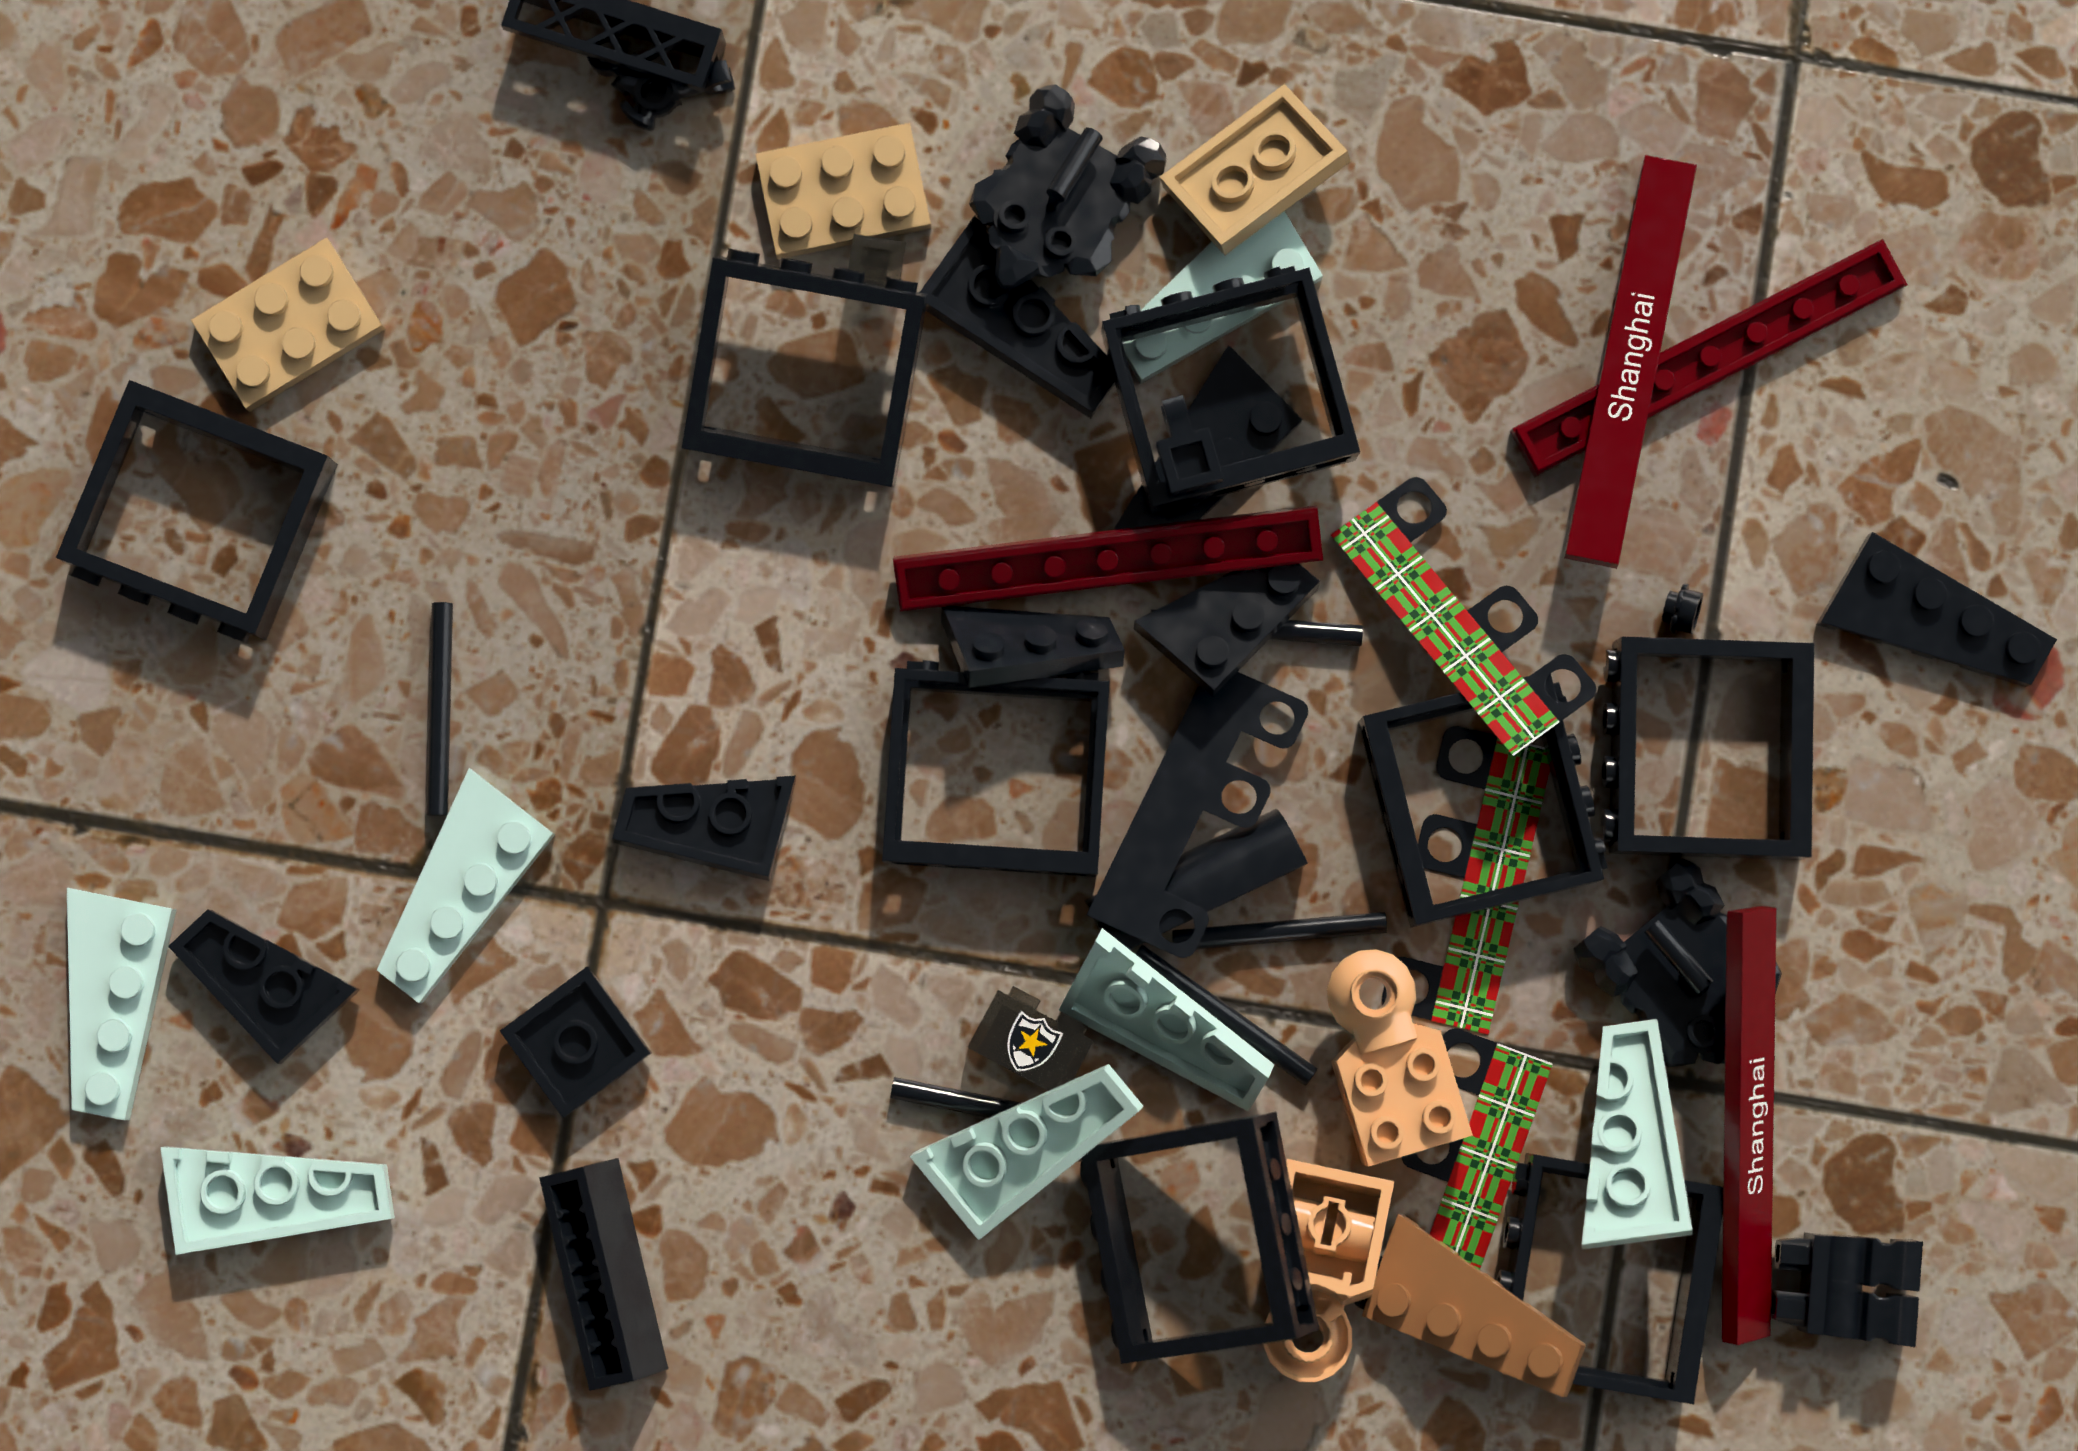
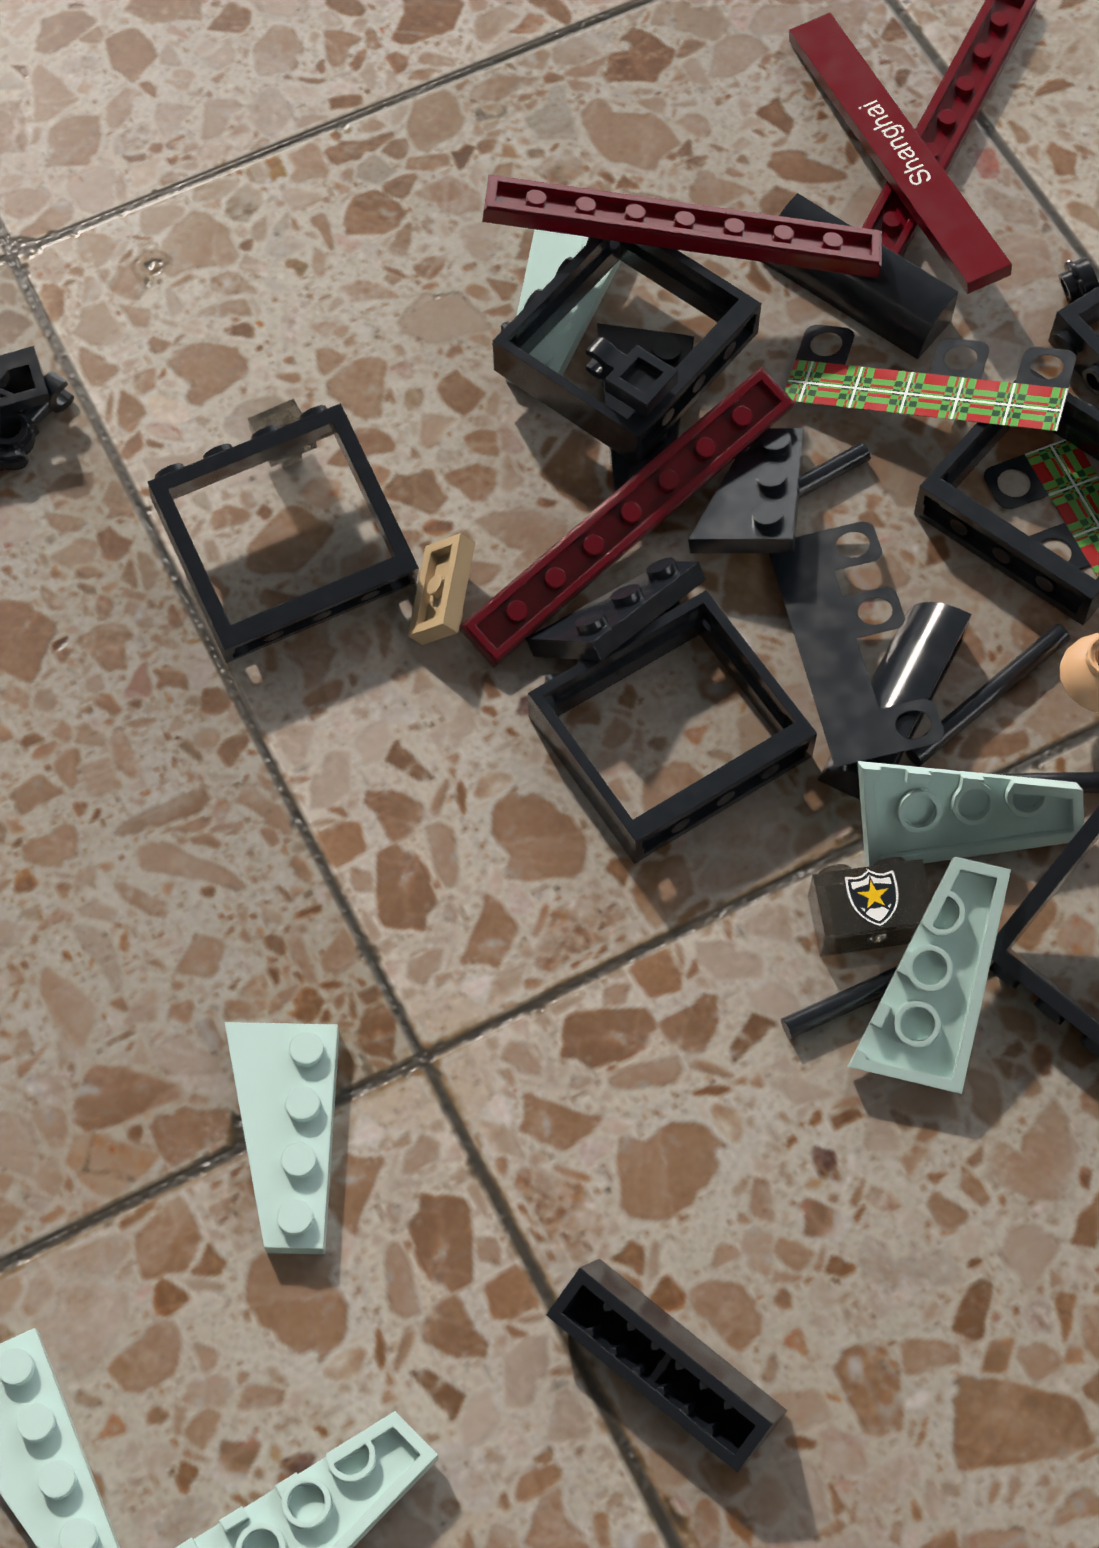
camera: 30 degrees left, 20 degrees down
(260, 983) = (165, 1336): black wing -> none
(439, 709) = (164, 998): black bar -> none
(575, 1042) = (488, 1181): black plate -> none
(712, 825) = (471, 924): black wing -> none
(842, 188) = (211, 403): tan plate -> none
(904, 512) = (441, 589): none -> tan plate
(1017, 324) = (428, 408): black wing -> none
(1060, 193) = (387, 306): black shield -> none
(1255, 169) = (532, 158): tan plate -> none
(1352, 325) = (683, 226): none -> dark red tile
(1490, 464) = (899, 305): none -> black brick

